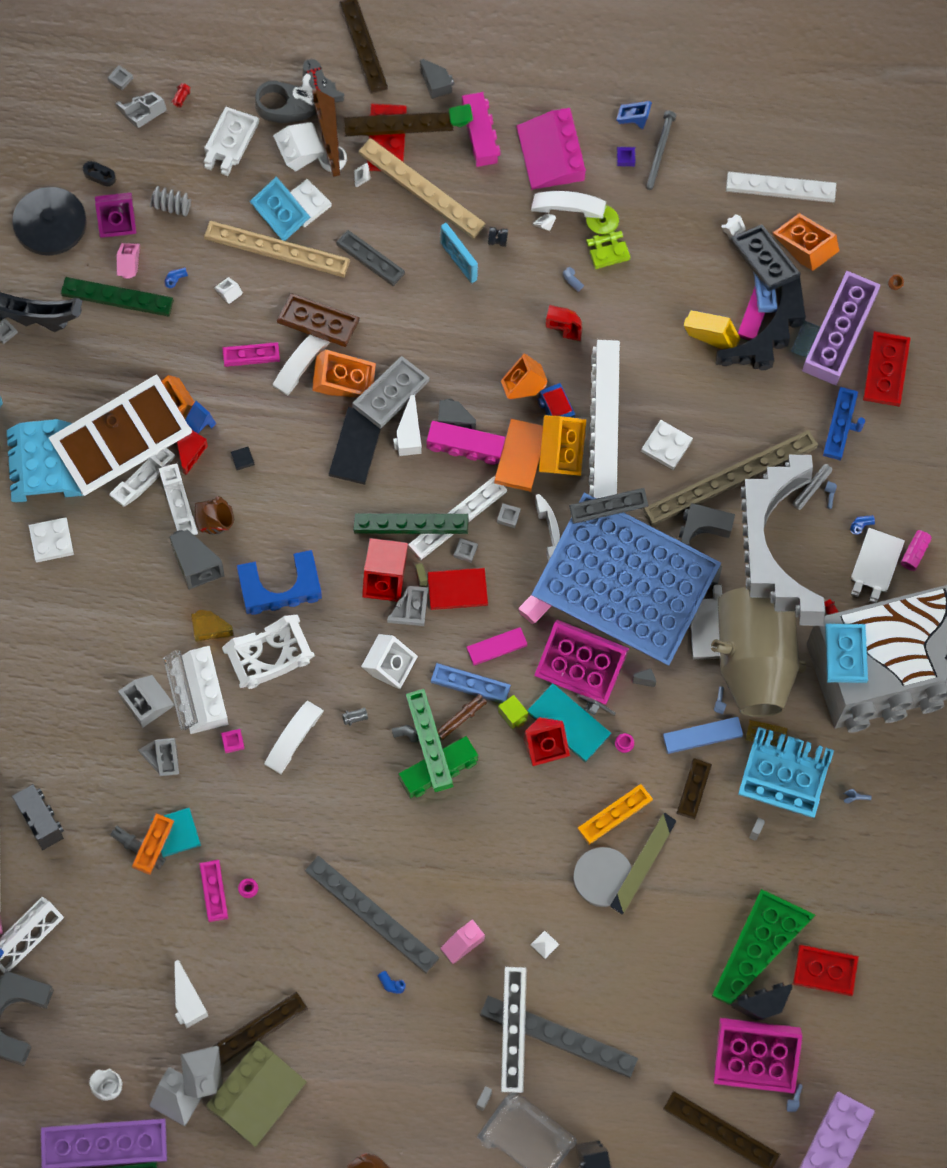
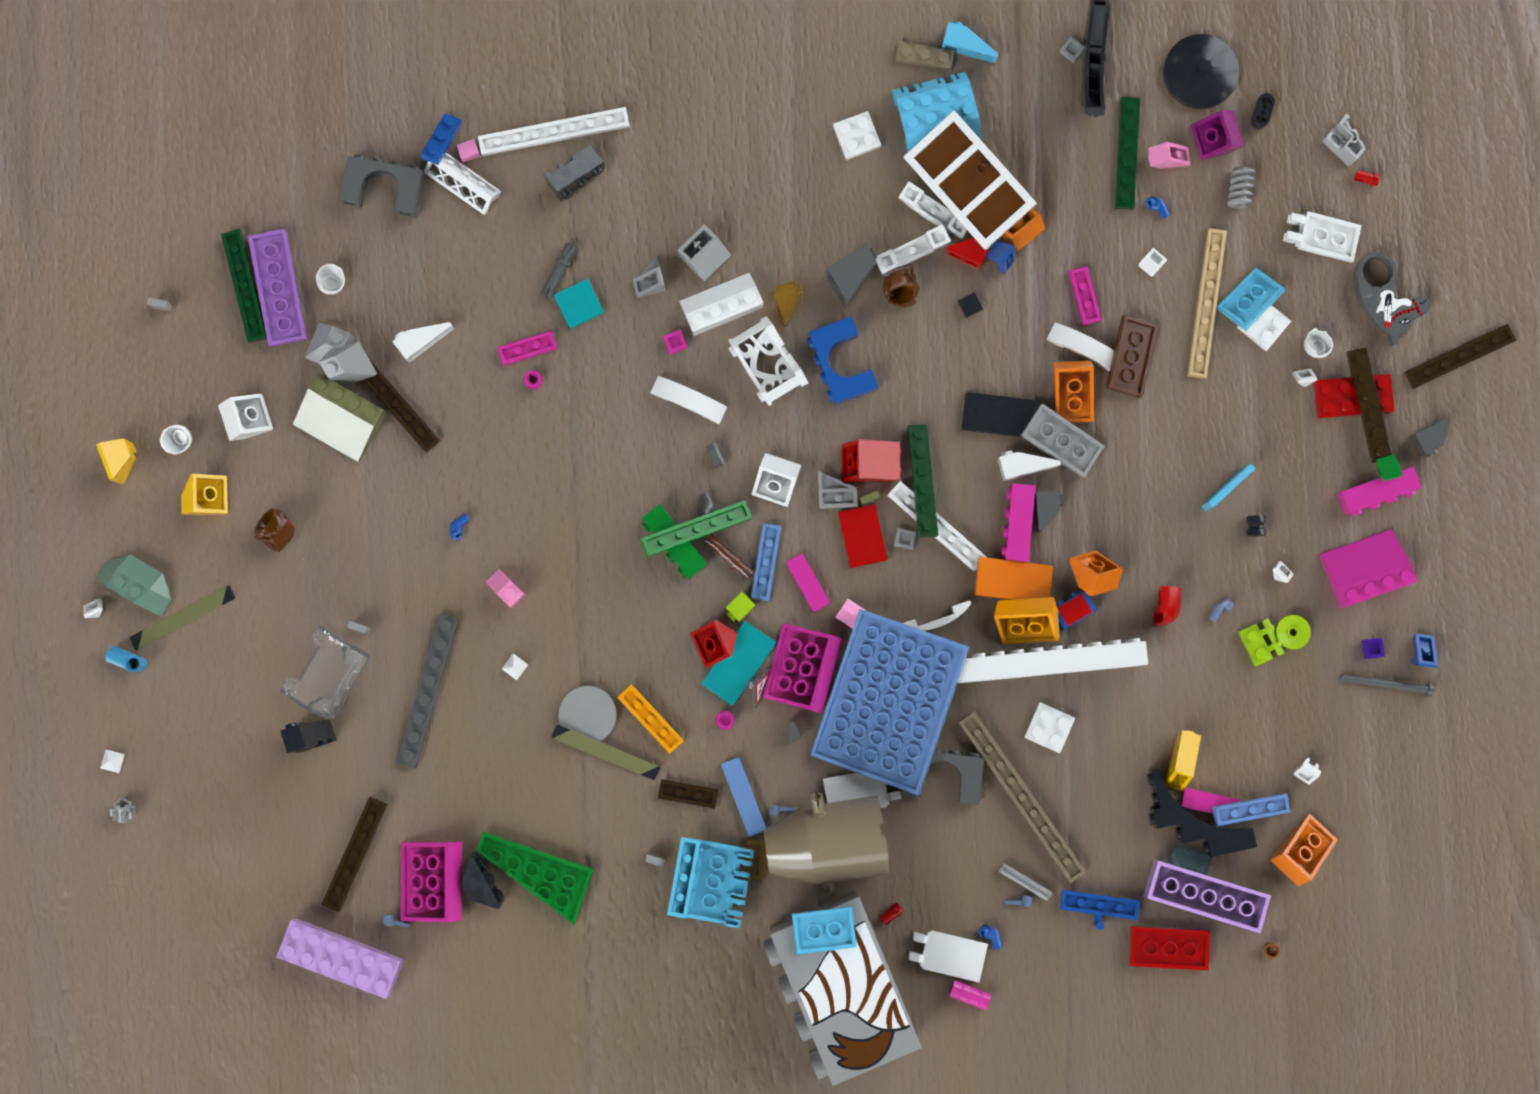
camera: 85 degrees right, 15 degrees up
(120, 77) = (1376, 112): light grey plate -> none
(153, 844) = (561, 283): orange tile -> none
(180, 690) = (719, 284): clear tile -> none
(299, 145) = (1326, 306): white slope -> none
(327, 118) = (1362, 330): reddish brown wedge -> none
(370, 258) = (1212, 399): dark grey tile -> none
(372, 914) = (523, 499): dark grey plate -> none
(422, 188) = (1298, 439): tan plate -> none
(508, 515) = (946, 576): light grey plate -> none
(514, 1029) = (421, 646): white brick -> none
(569, 201) = (1305, 595): white slope -> none
(608, 505) = (957, 673): dark grey tile -> none
(765, 257) = (1275, 808): black tile -> none
(765, 575) = (895, 839): arch -> none
(781, 187) = (1365, 817): white plate -> none
(825, 970) = (523, 940): red tile -> none
(854, 796) = (700, 953): sand blue hand -> none

